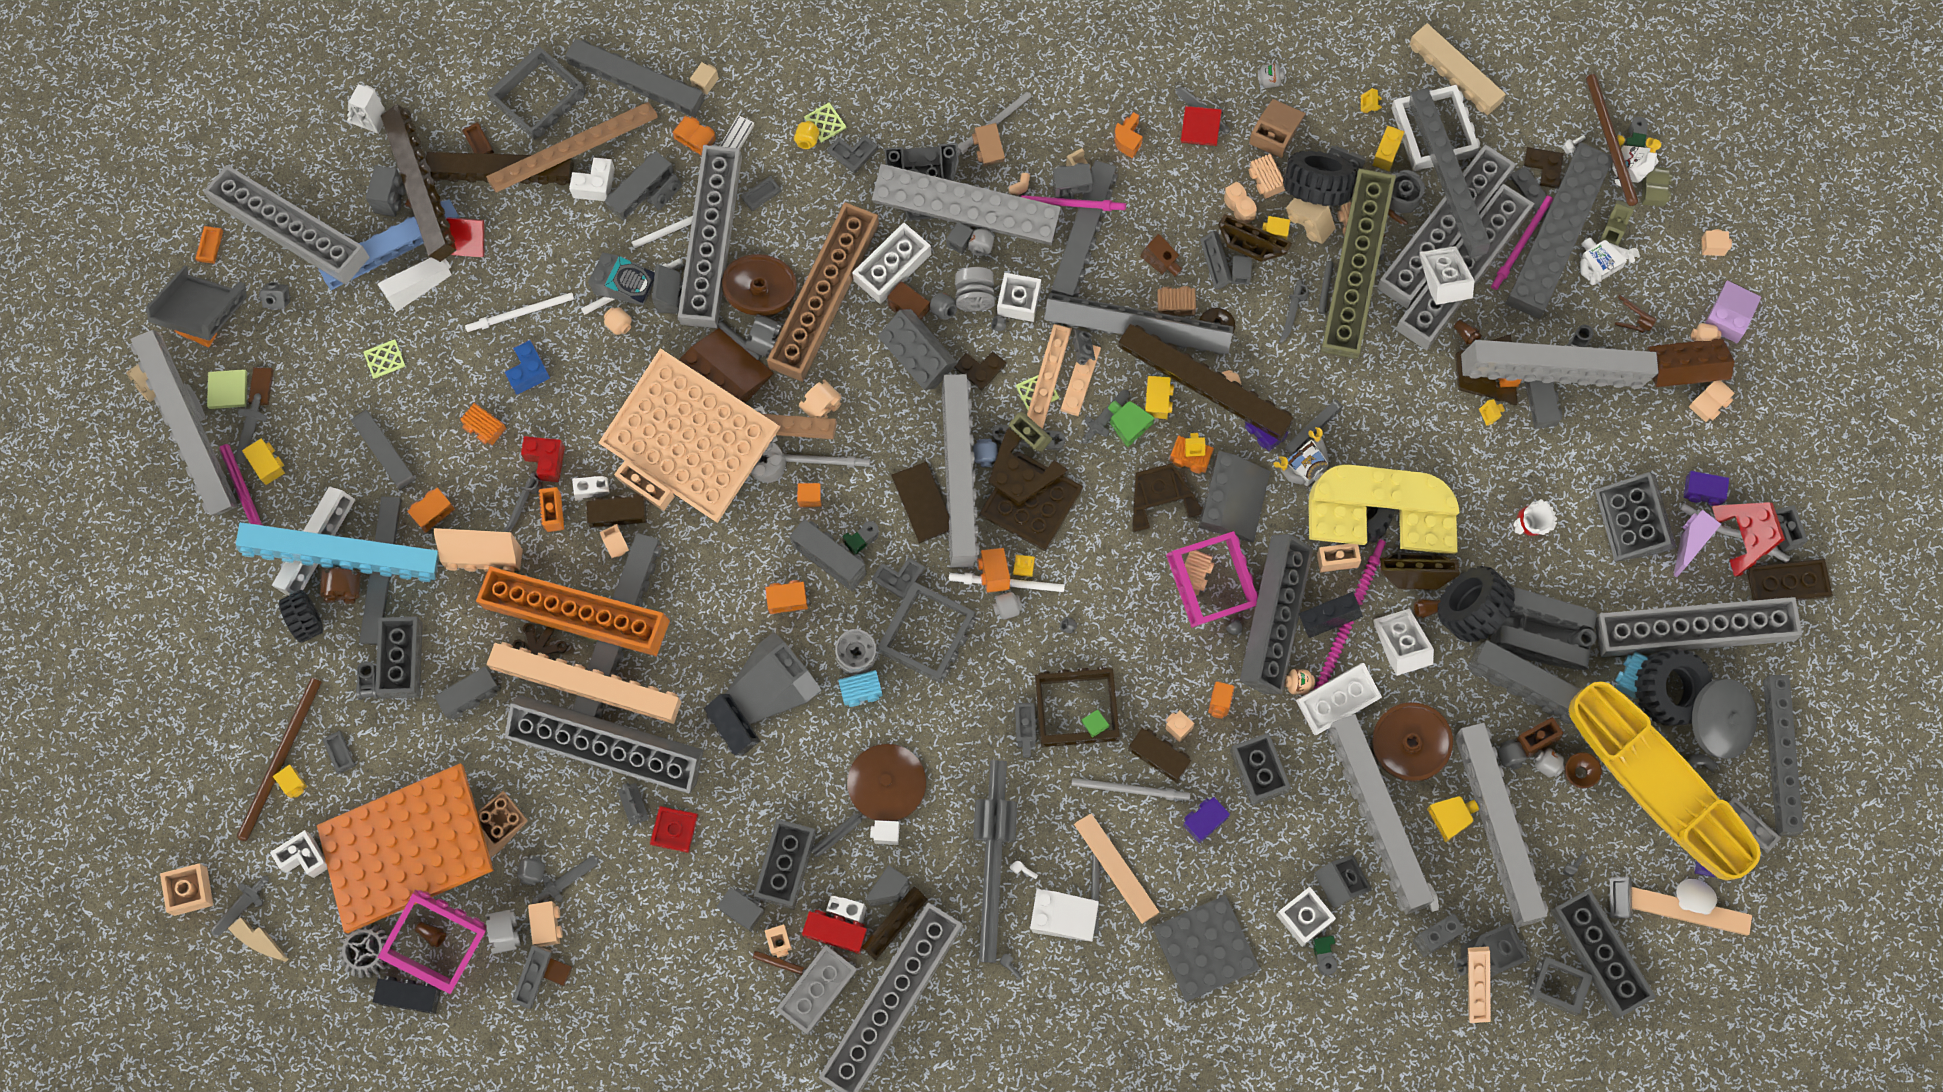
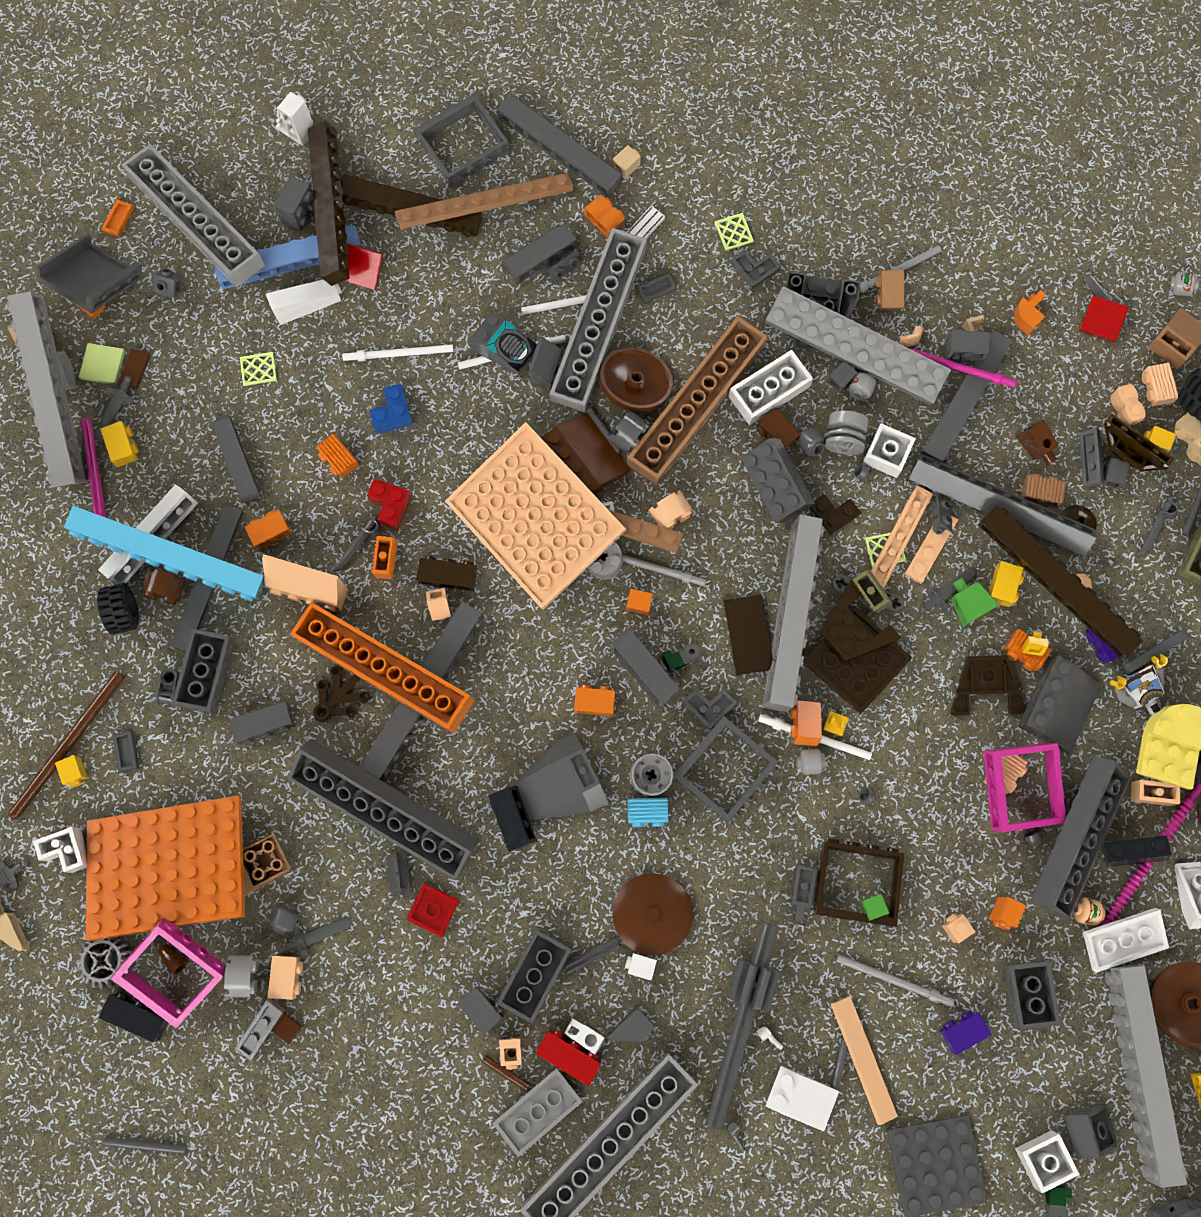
camera: 10 degrees right, 5 degrees up
(477, 139) = (395, 173): reddish brown tile -> none
(584, 683) = (377, 743): light nougat brick -> none
(590, 487) = (427, 543): white leg -> none
(594, 185) = (498, 243): white brick -> none
(617, 321) = (490, 383): light nougat head -> none
(644, 485) = (480, 554): light nougat brick -> none
(806, 135) = (713, 240): yellow head -> none
(894, 923) = (629, 1063): dark brown tile -> none
(985, 452) = (823, 600): sand blue head -> none
(1160, 754) = (932, 953): dark brown brick -> none

